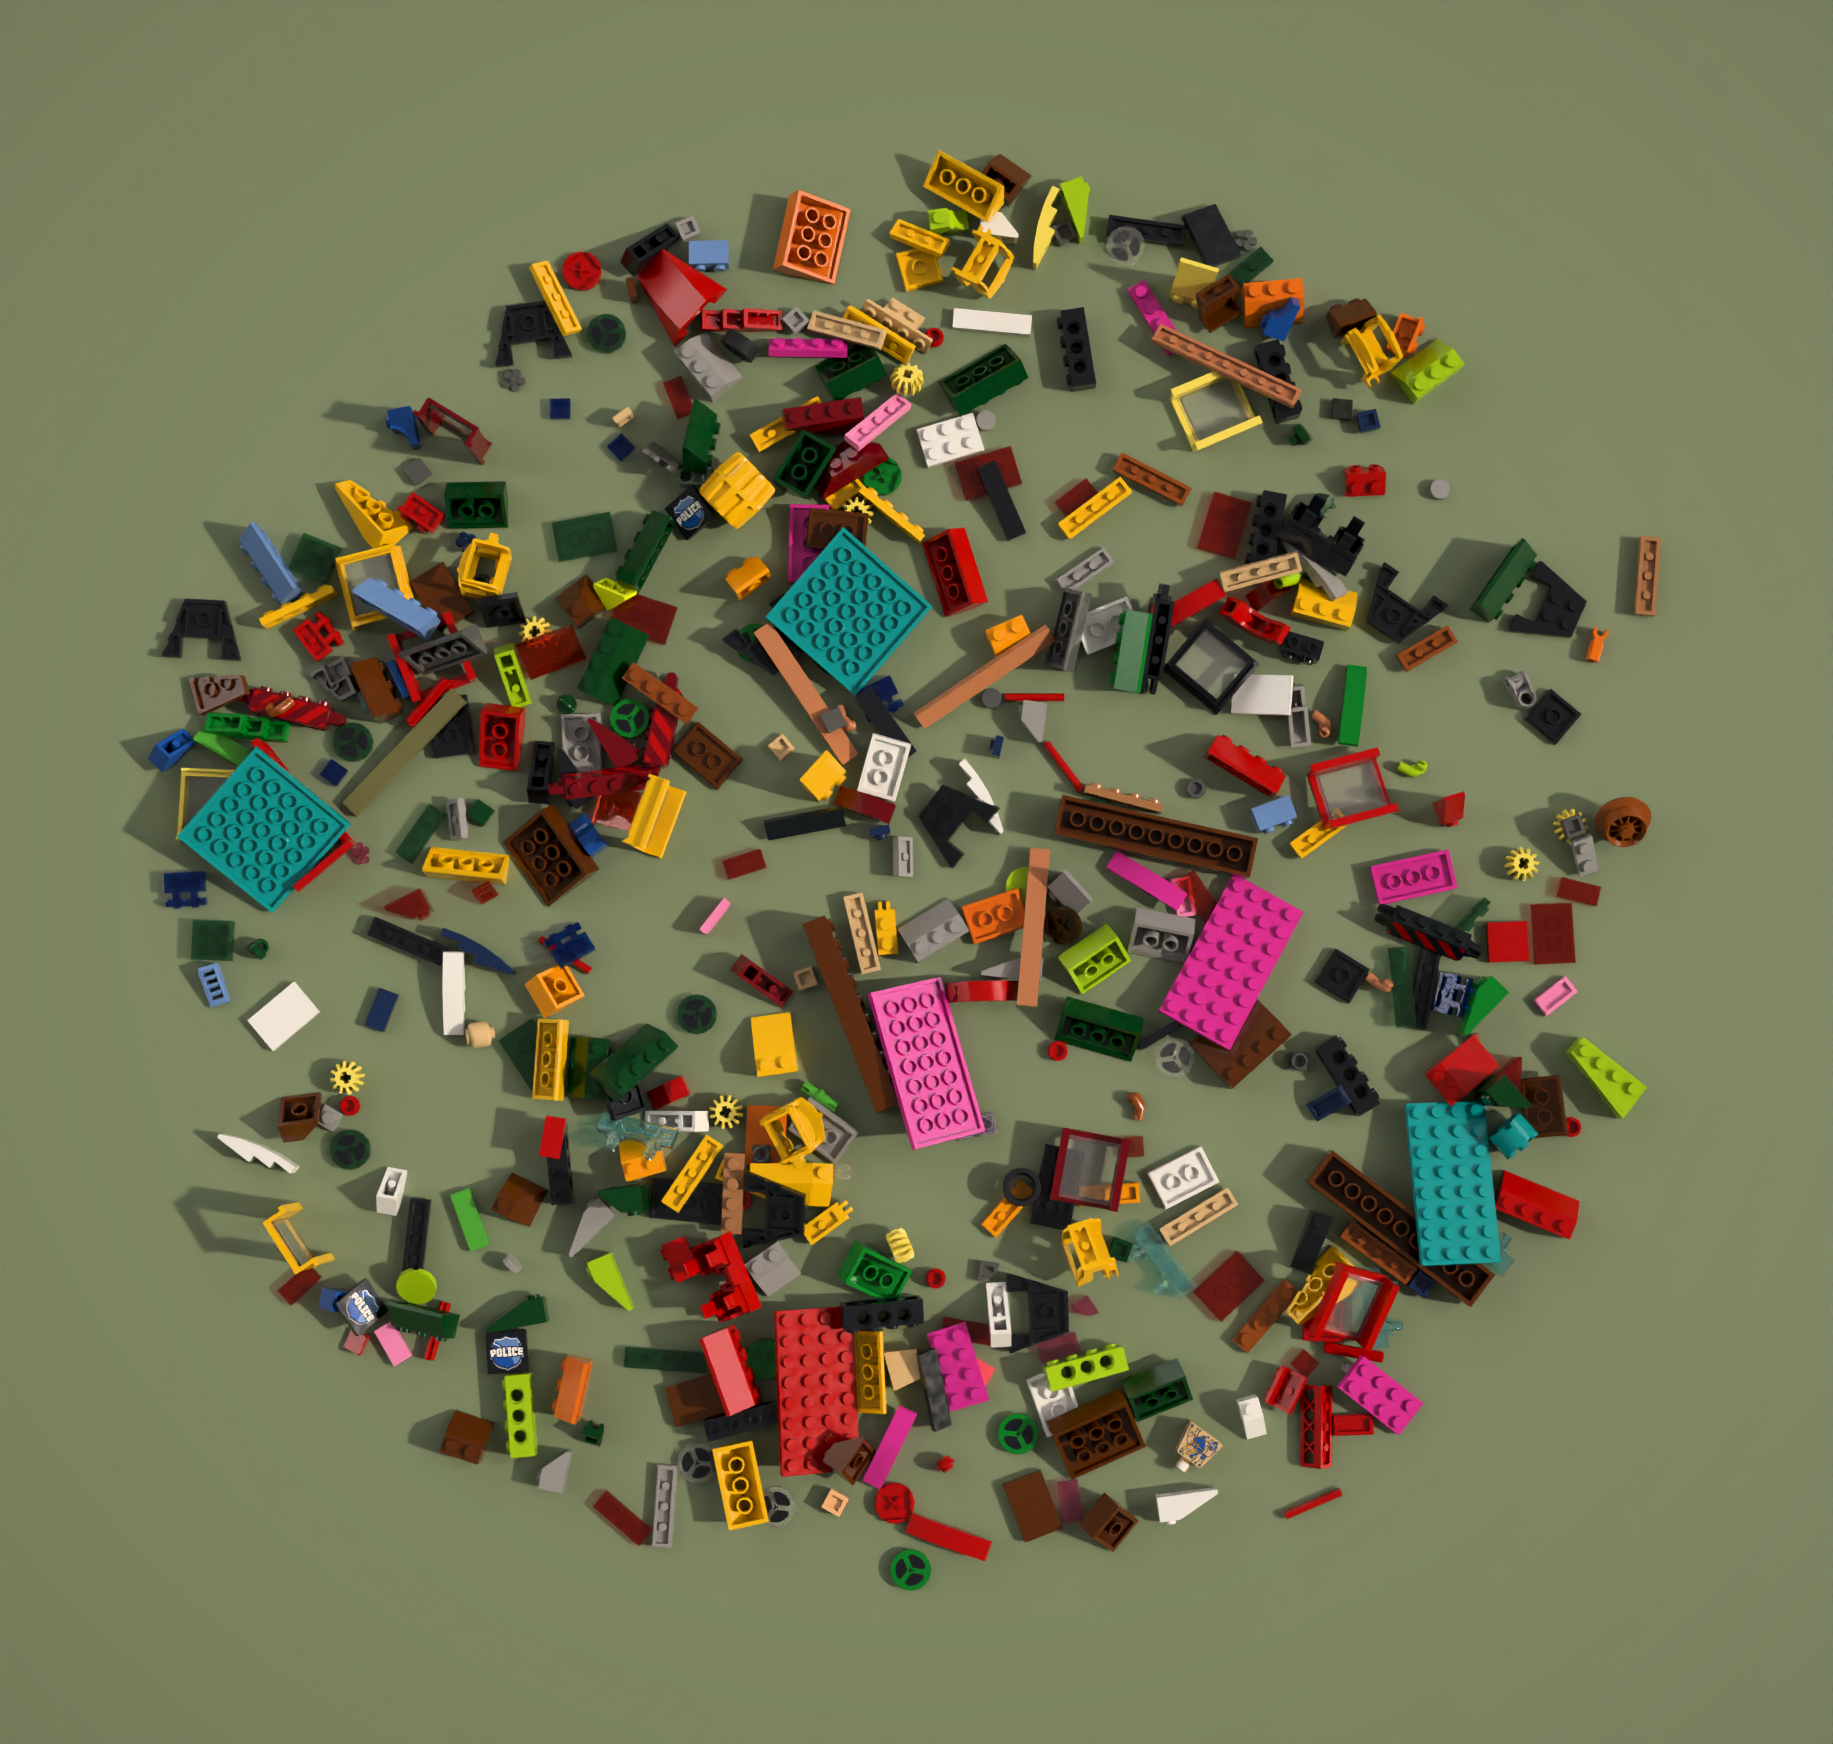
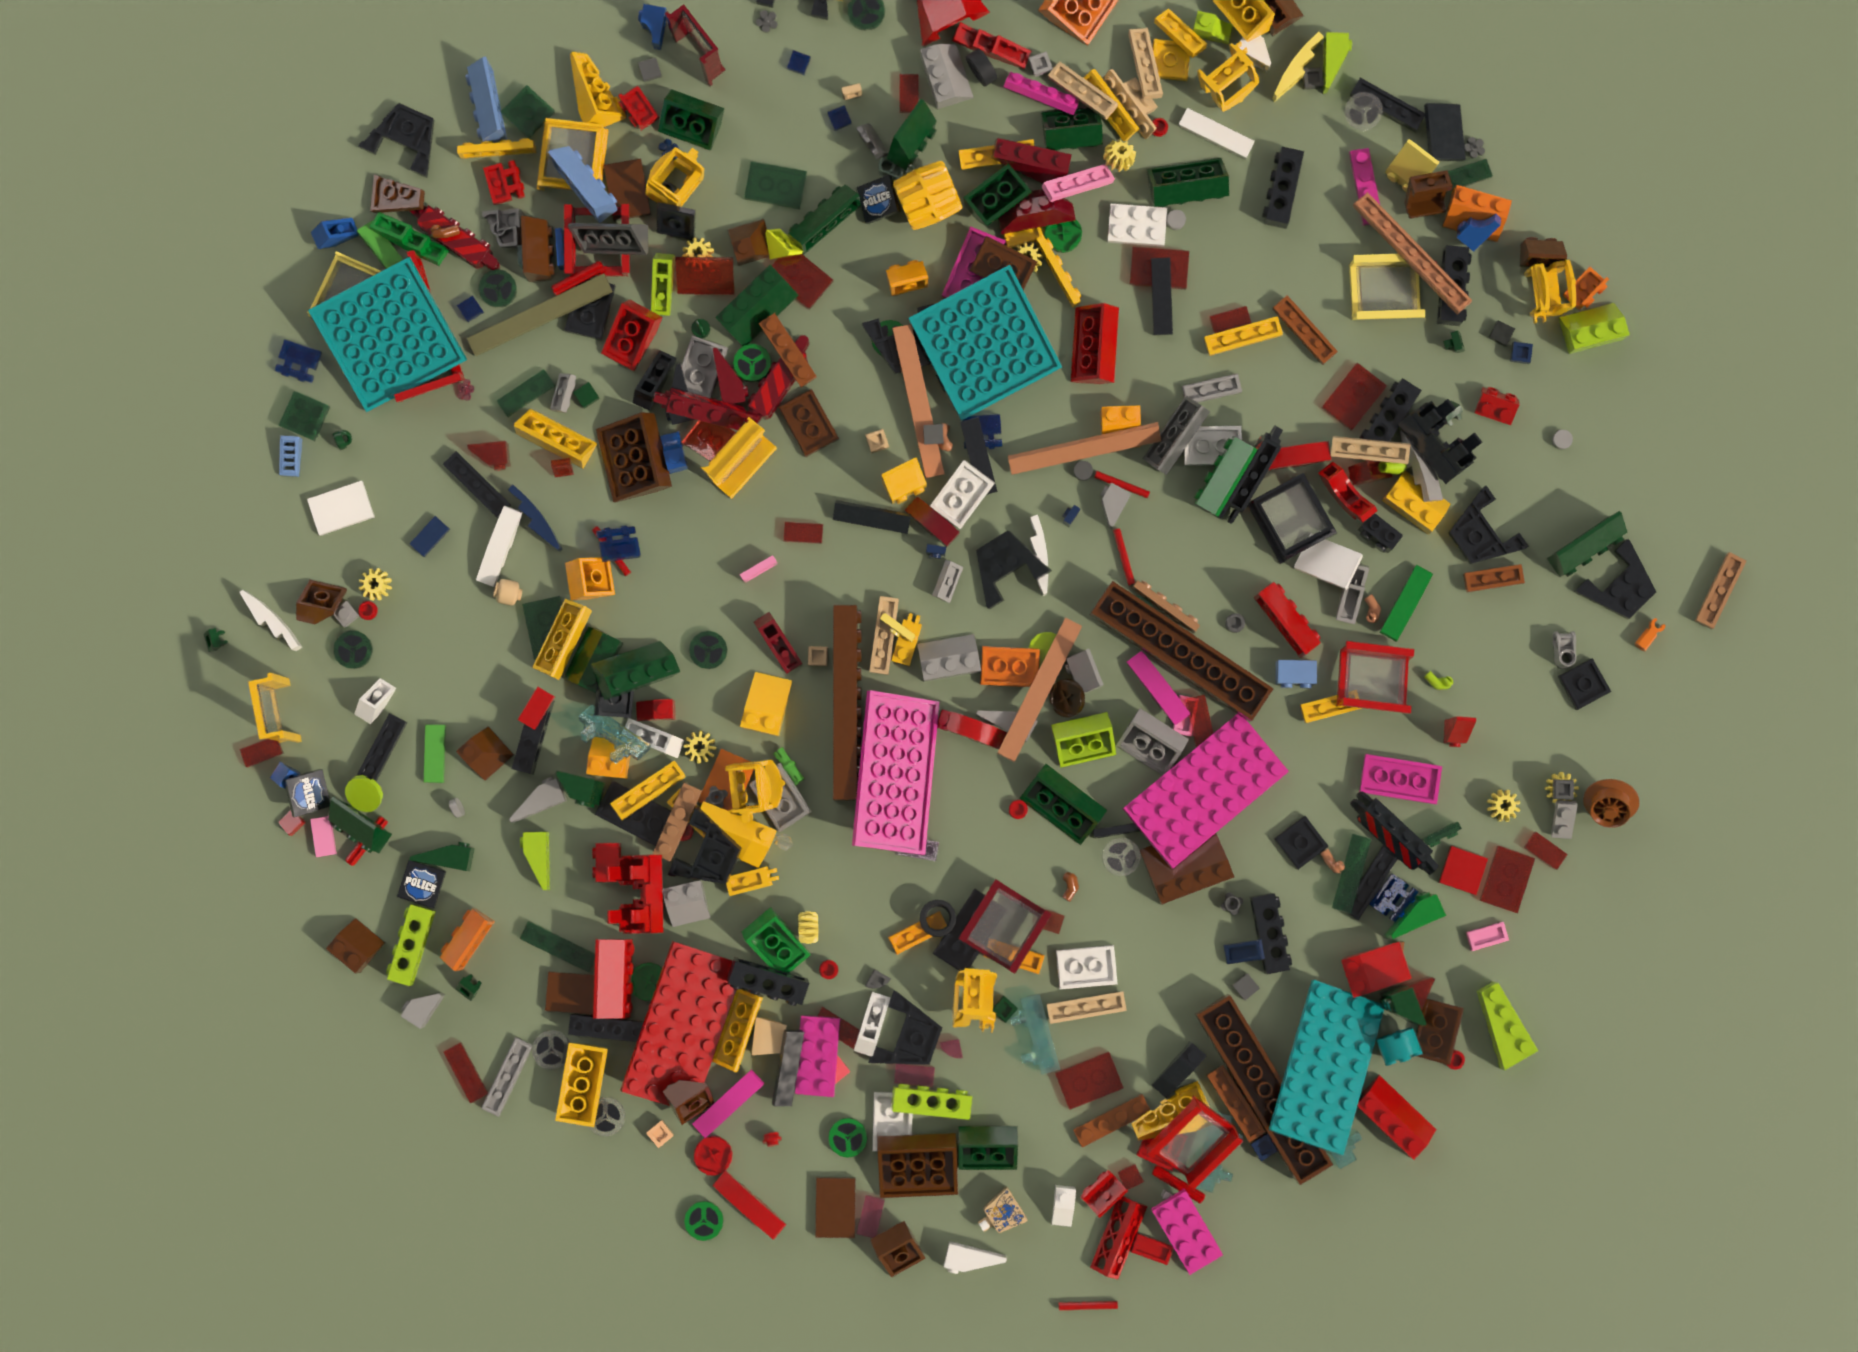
camera: 20 degrees right, 0 degrees up
(208, 1193) = (212, 639): none -> dark green tile
(872, 922) = (896, 628): none -> light yellow plate
(897, 281) = (1145, 63): none -> tan plate
(1343, 1135) = (1246, 986): none -> dark grey tile

